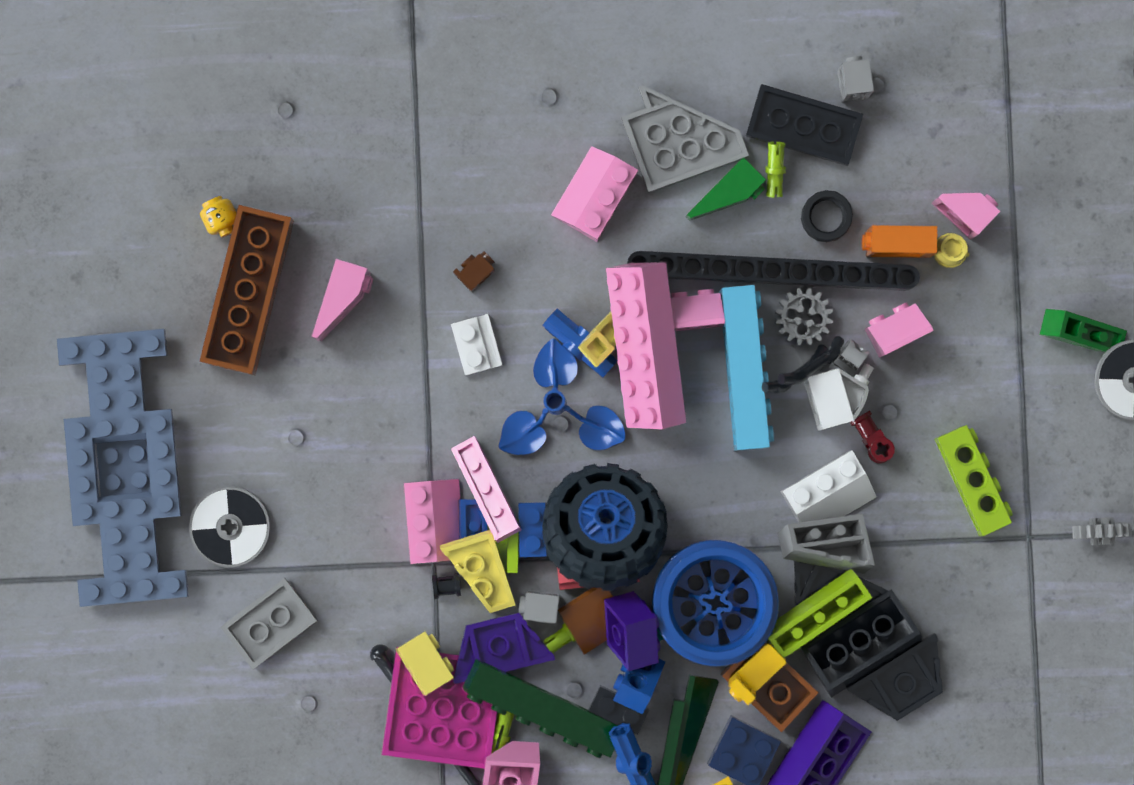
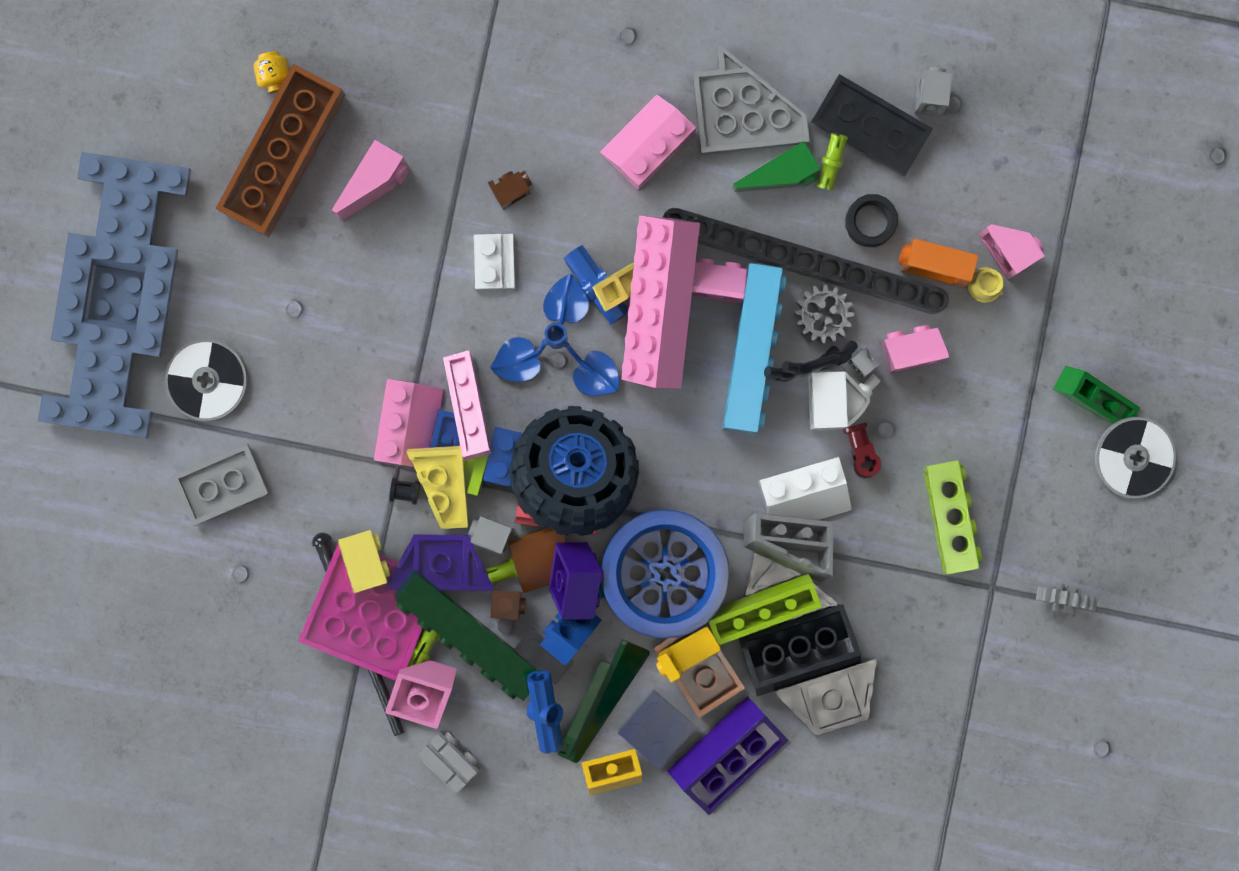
camera: 15 degrees right, 0 degrees up
(572, 669) = (507, 604): none -> reddish brown brick

